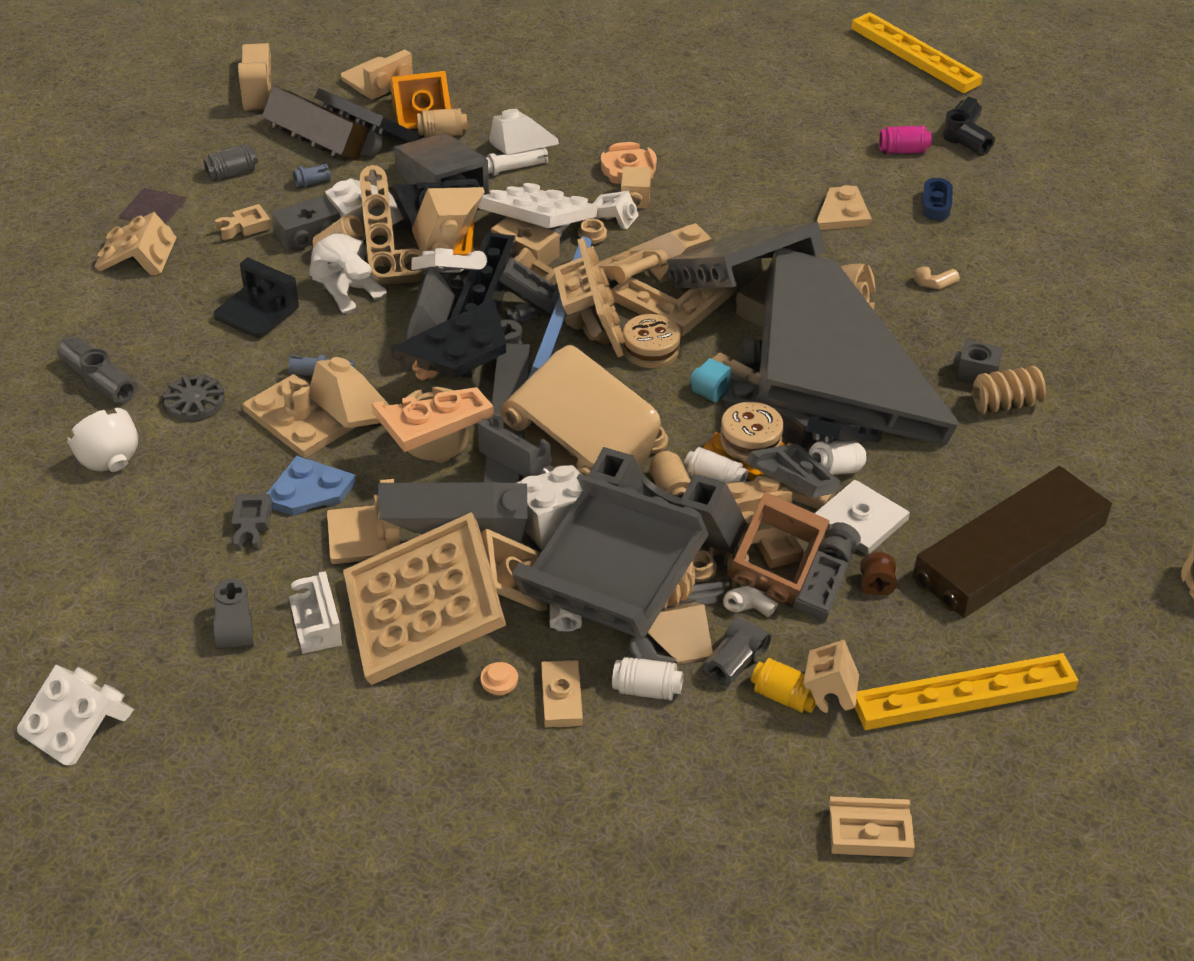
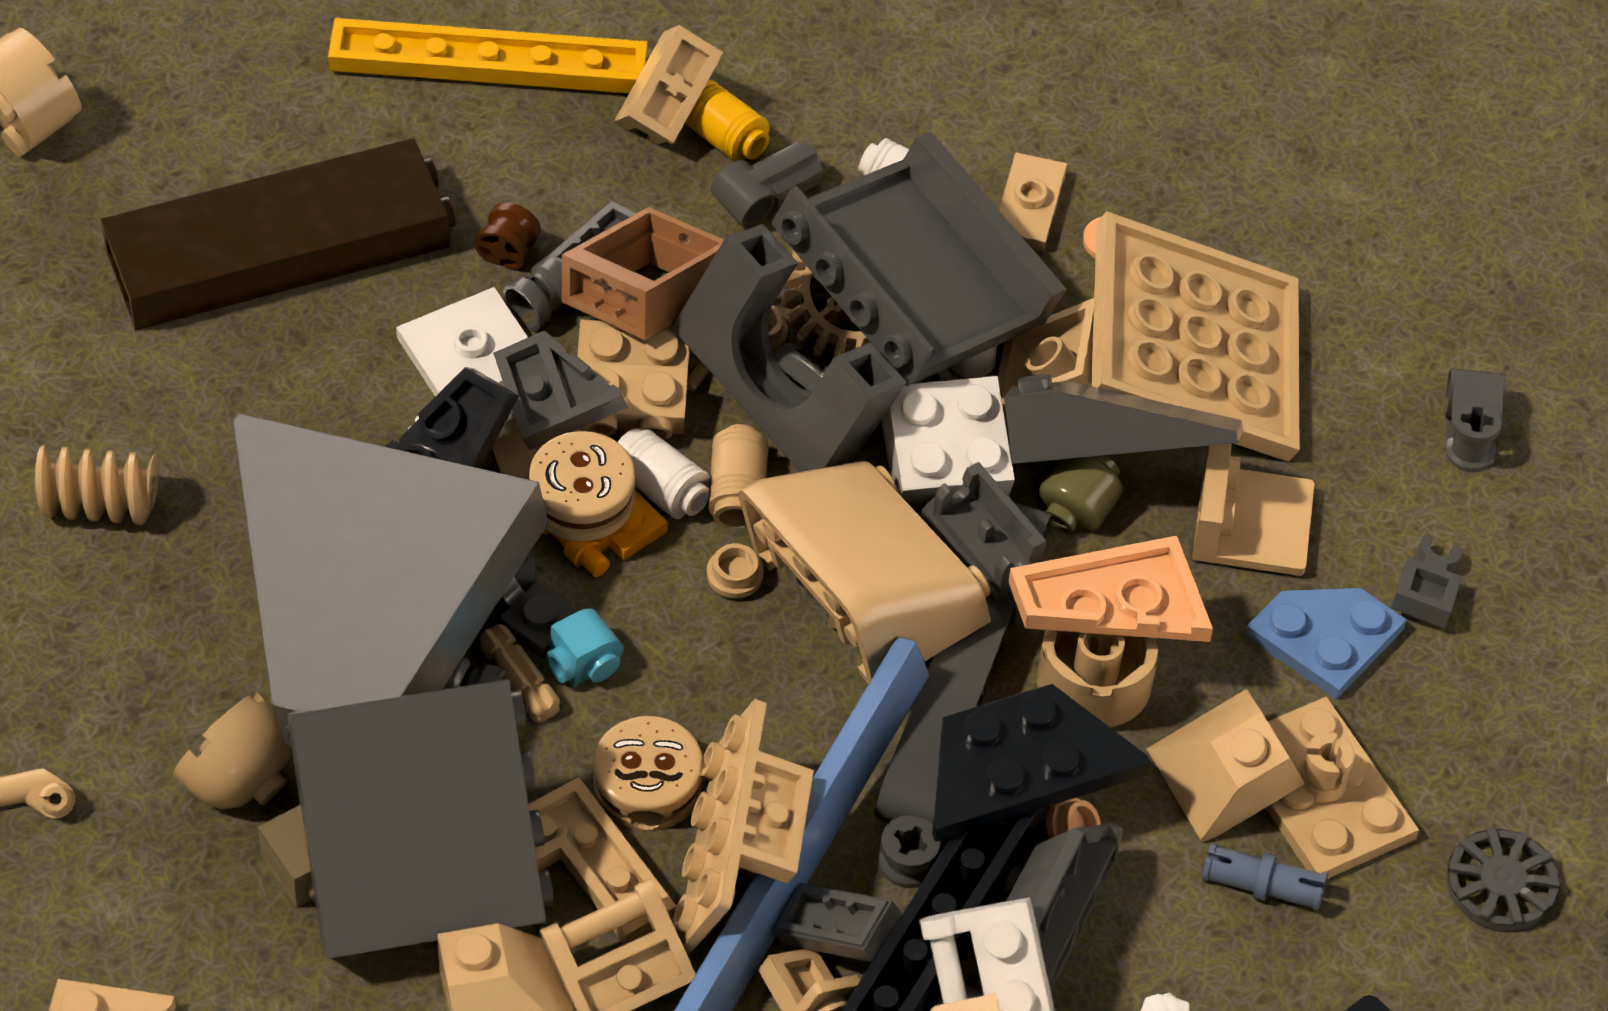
camera: 165 degrees left, 10 degrees up
(315, 614) = (1350, 392): white hinge -> none
(975, 360) = (96, 539): dark grey brick -> none

